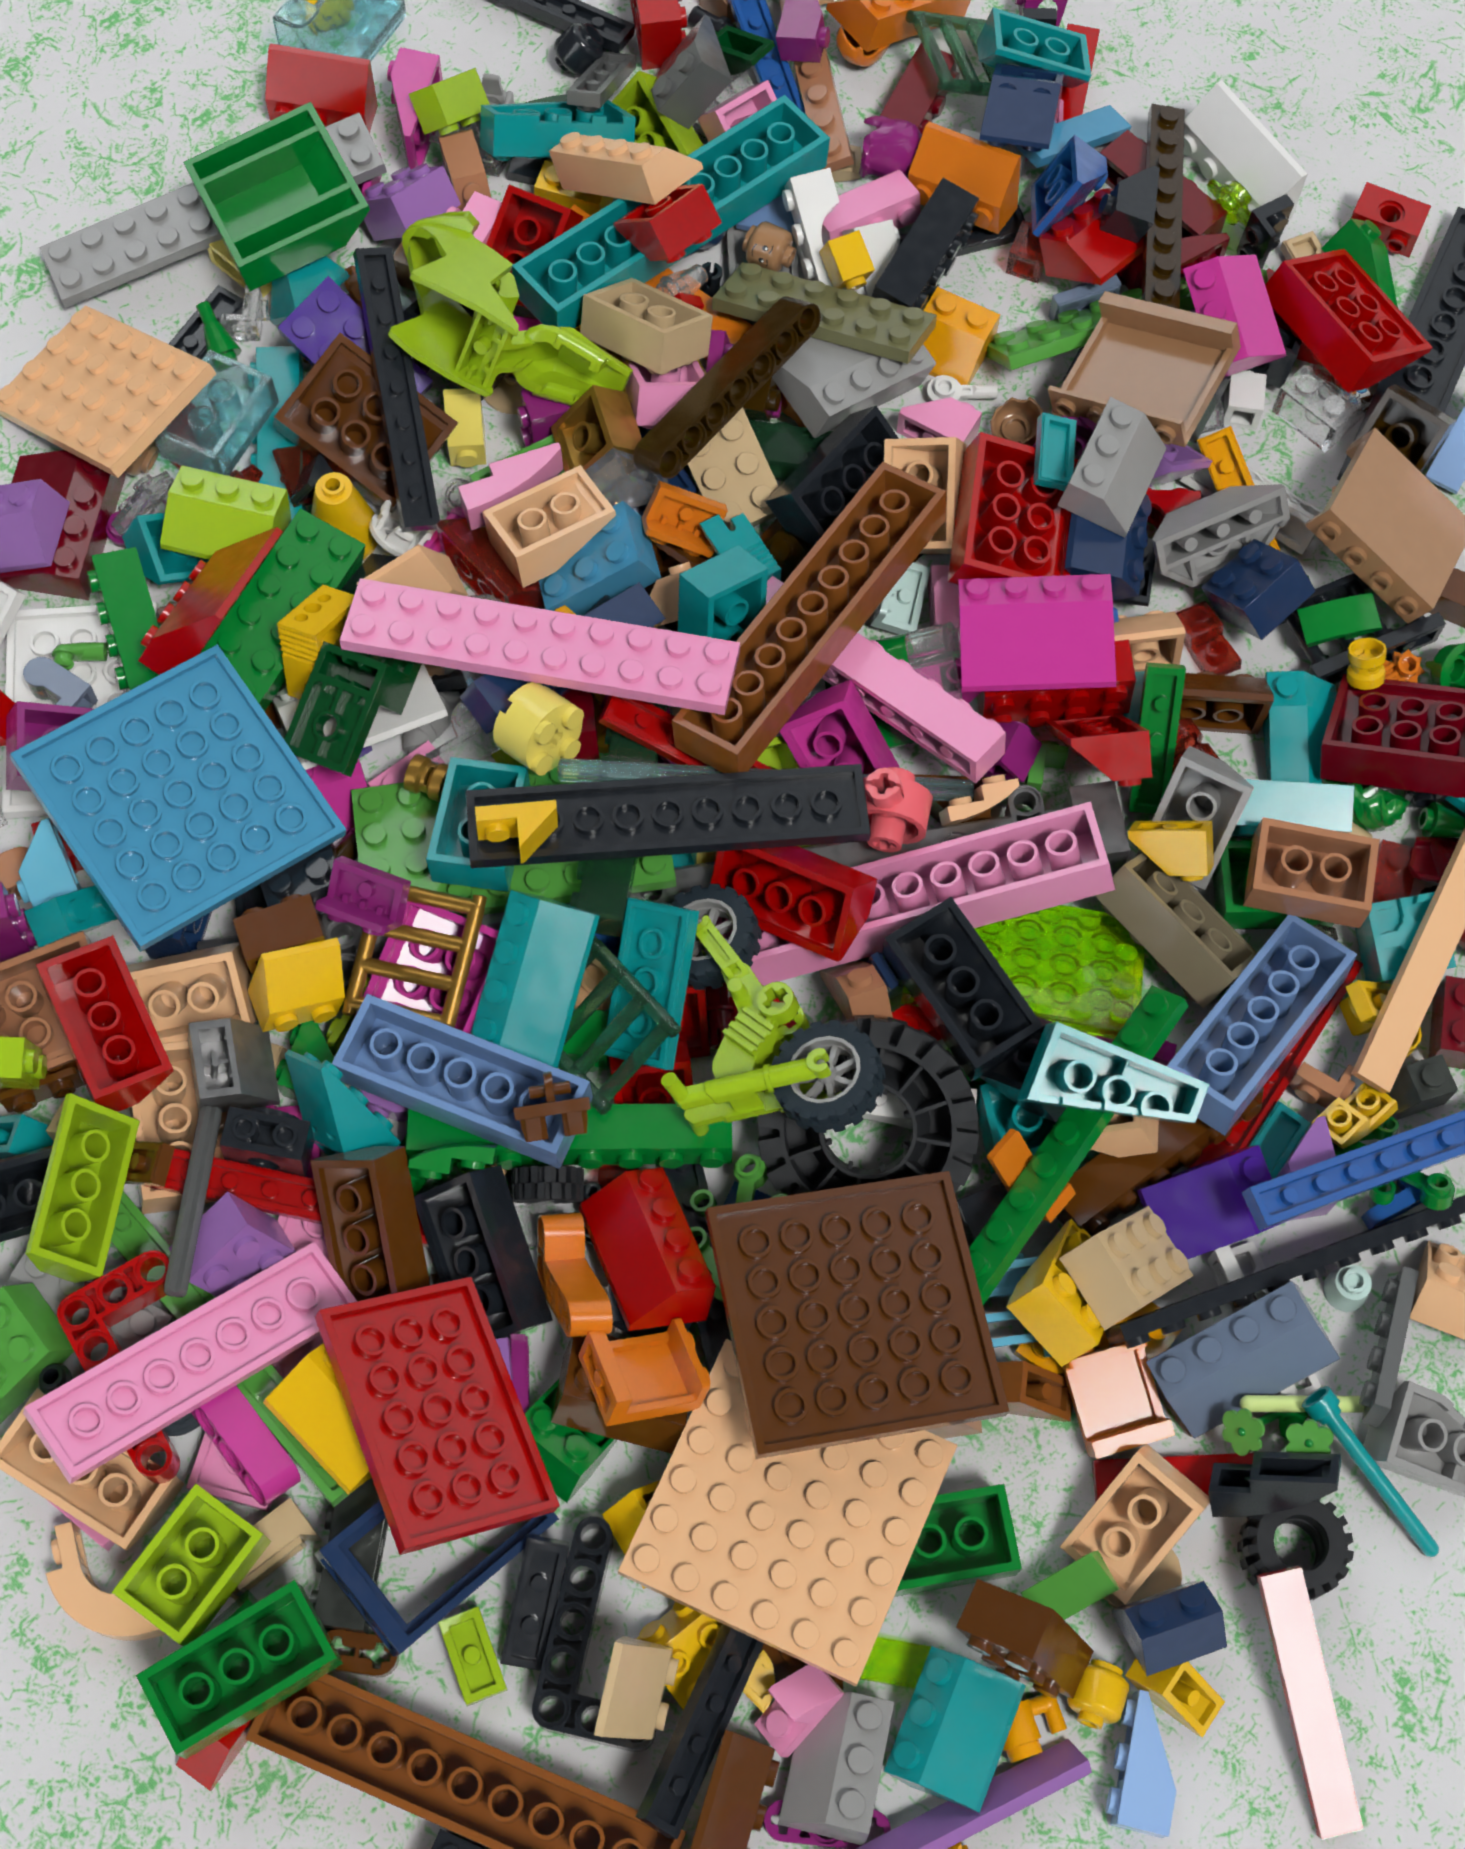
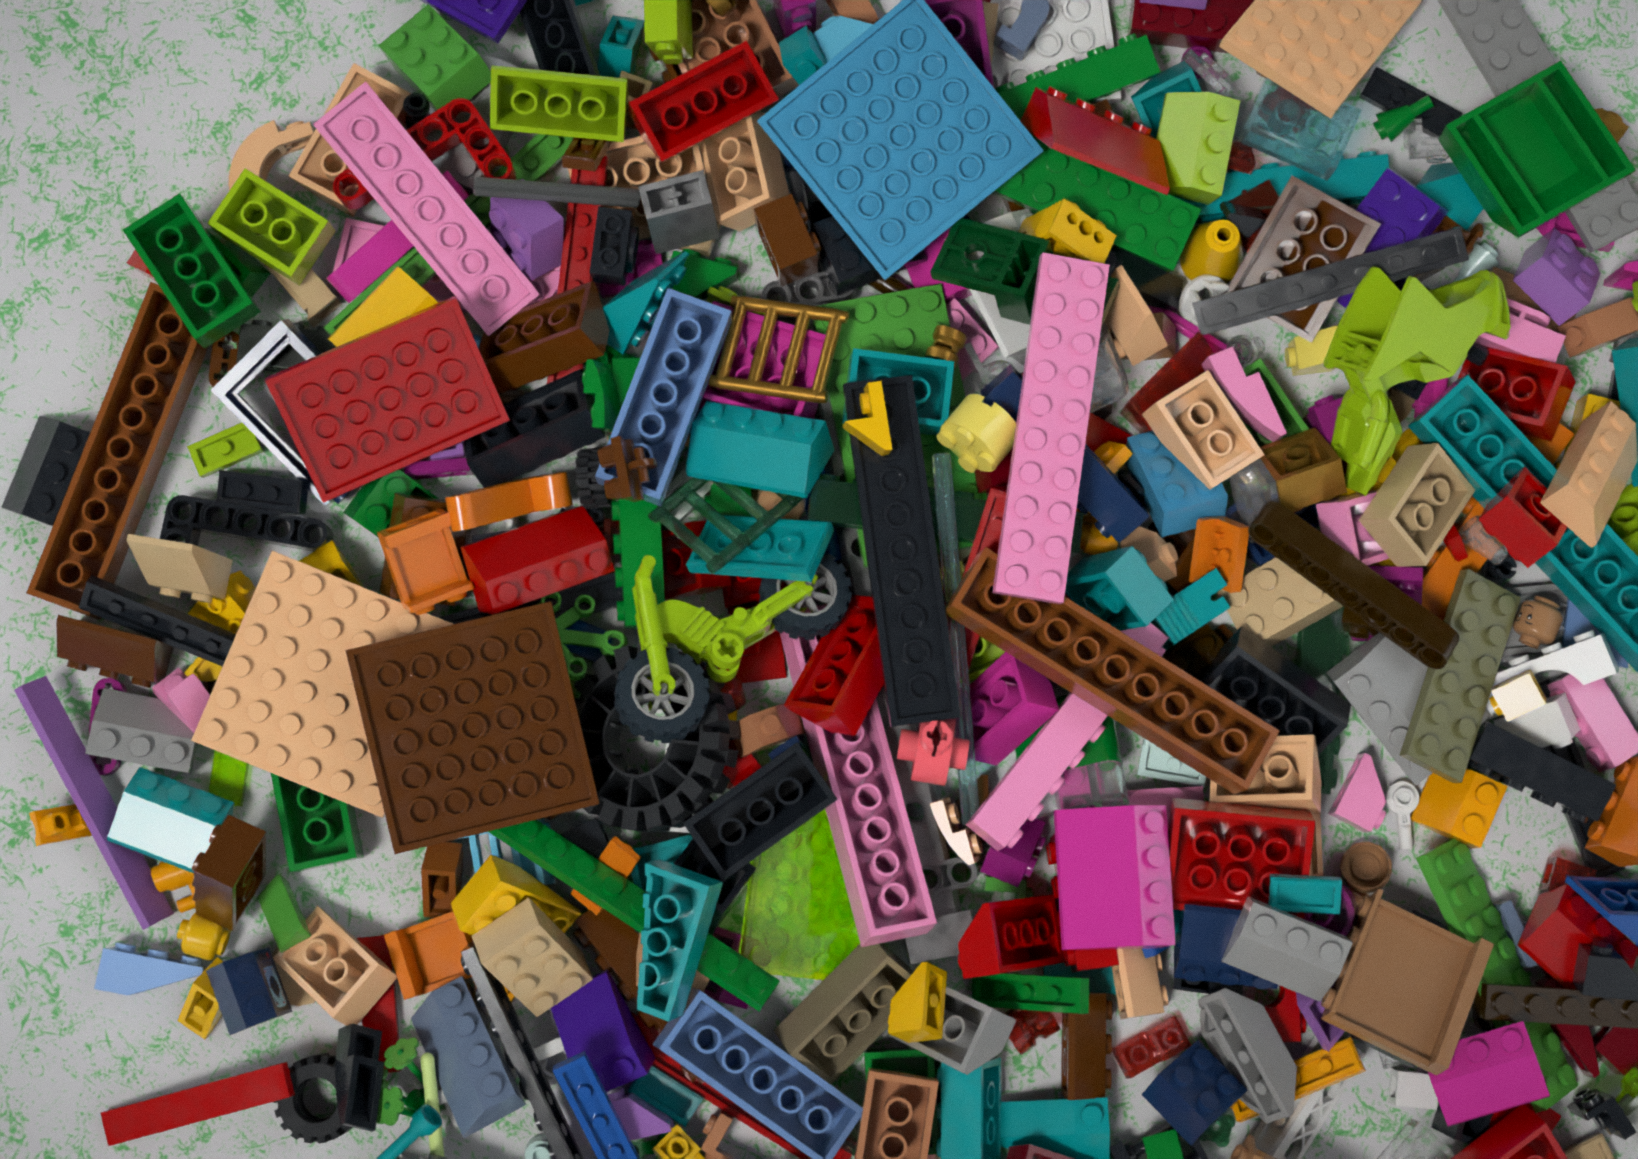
camera: 90 degrees right, 15 degrees up
(67, 654) = (1063, 37): bright green arm -> none
(298, 985) = (746, 256): yellow slope -> none
(365, 897) = (818, 300): magenta bracket -> none

